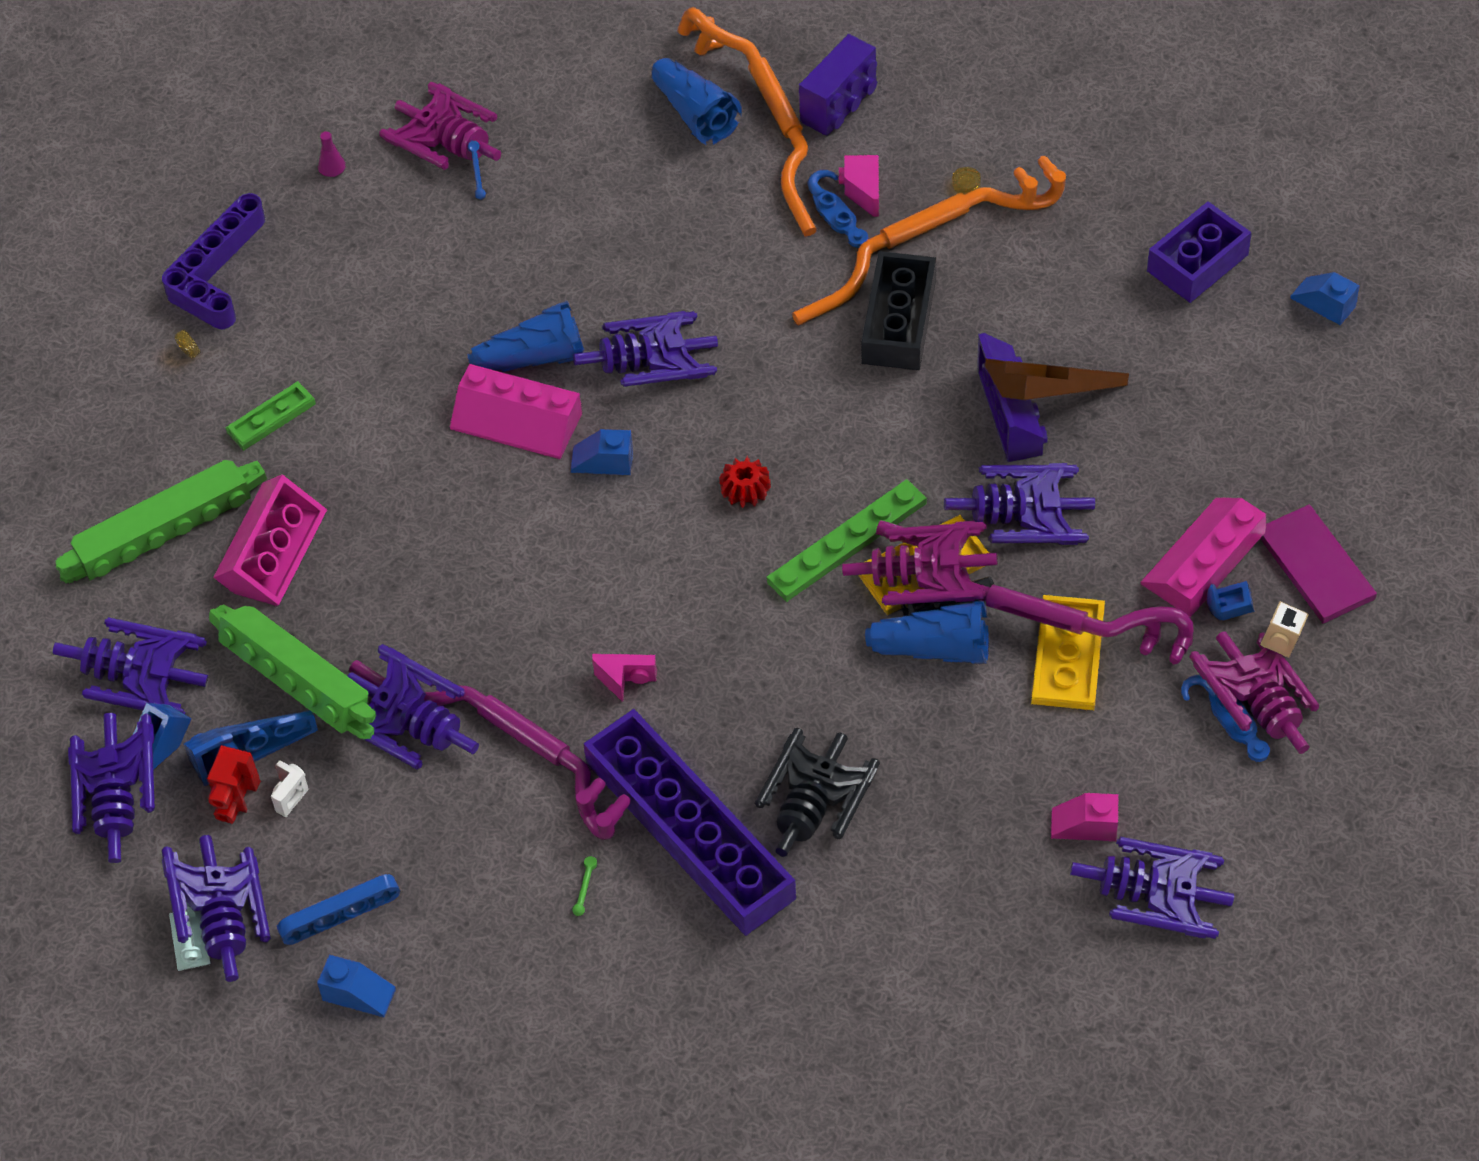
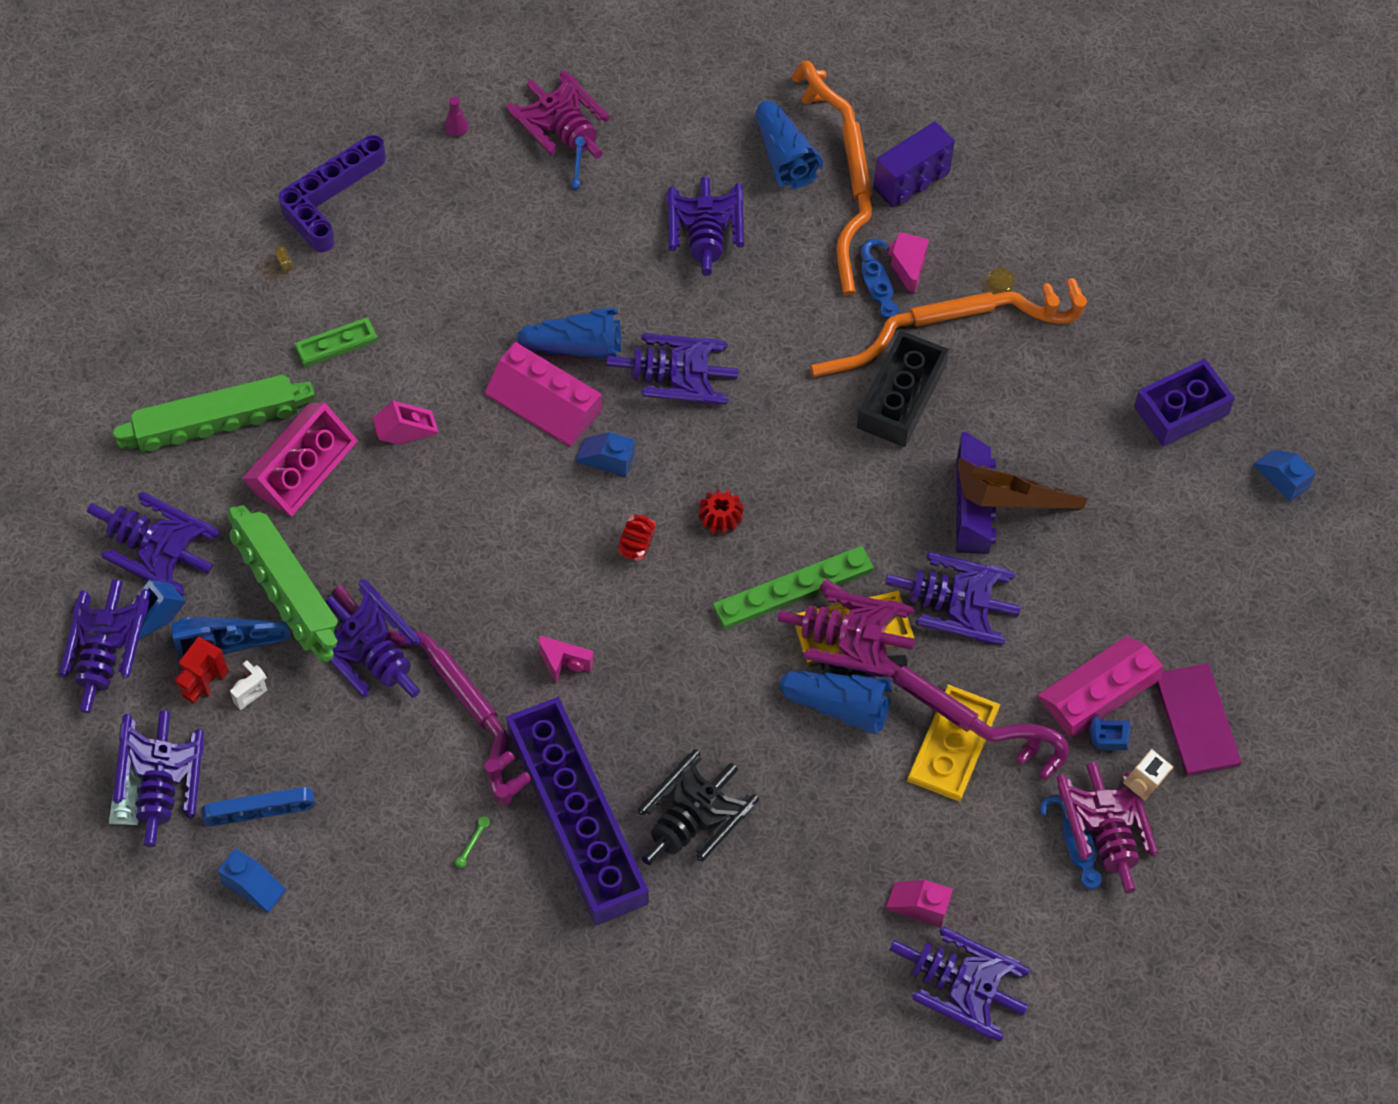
camera: 10 degrees right, 5 degrees up
(372, 478) = (404, 423): none -> dark pink slope
(634, 195) = (704, 219): none -> dark purple bar
(664, 529) = (636, 537): none -> red gear

